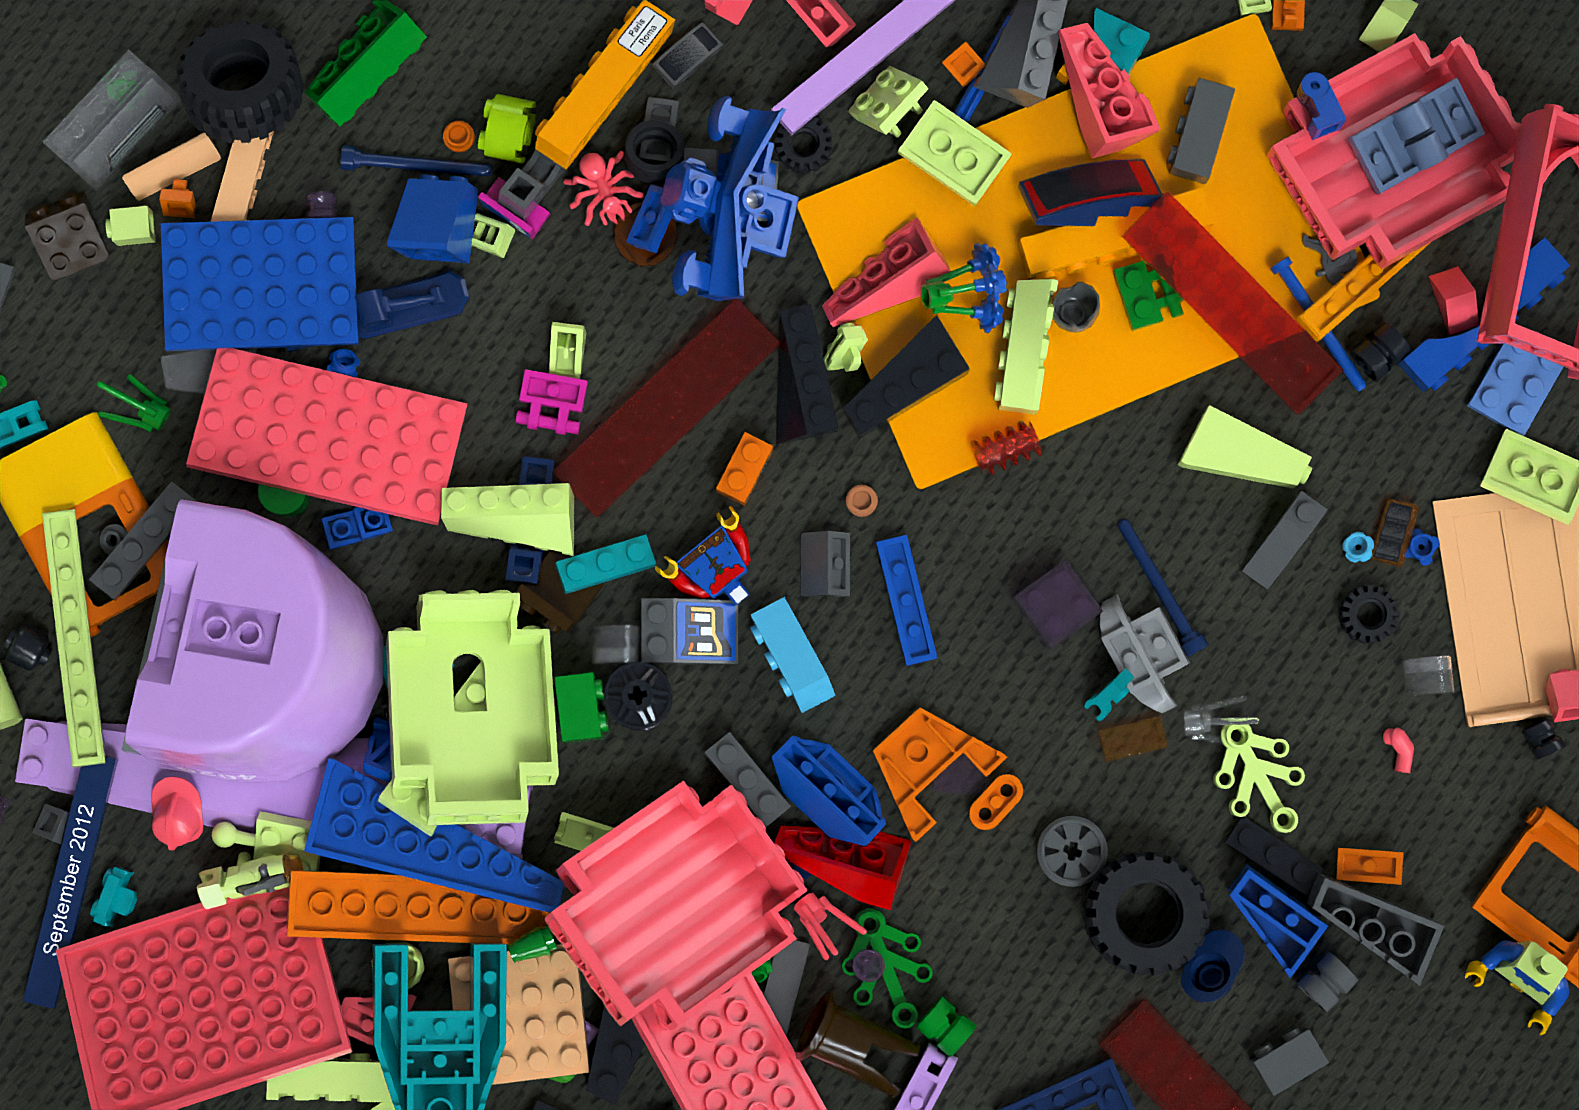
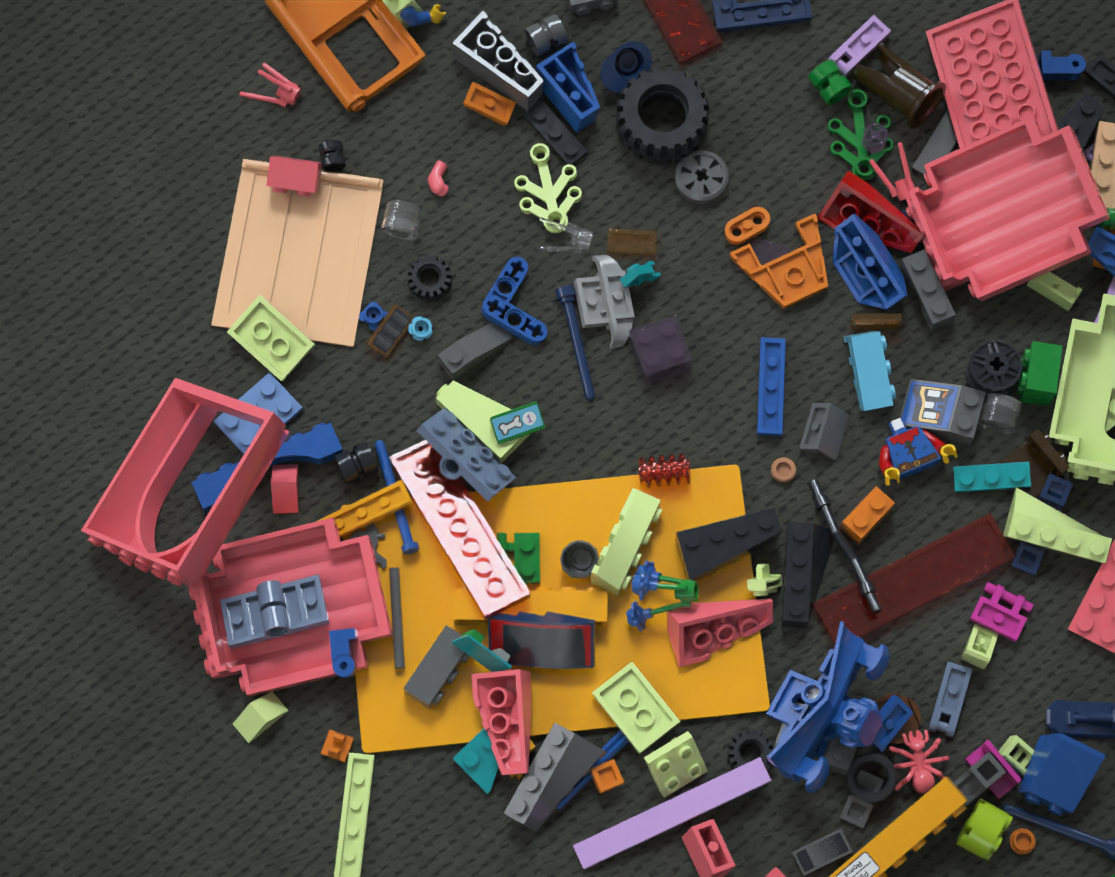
camera: 160 degrees left, 10 degrees down
(586, 279) = (950, 698): none -> sand blue plate
(801, 470) = (866, 587): none -> black bar
(801, 721) = (875, 321): none -> clear orange tile
(1141, 154) = (471, 644): none -> teal piece
(1202, 450) = (517, 422): none -> slope
(1253, 393) = (465, 455): none -> sand blue plate
(1268, 612) = (502, 302): none -> blue beam
(1269, 179) = (396, 618): none -> dark grey bar

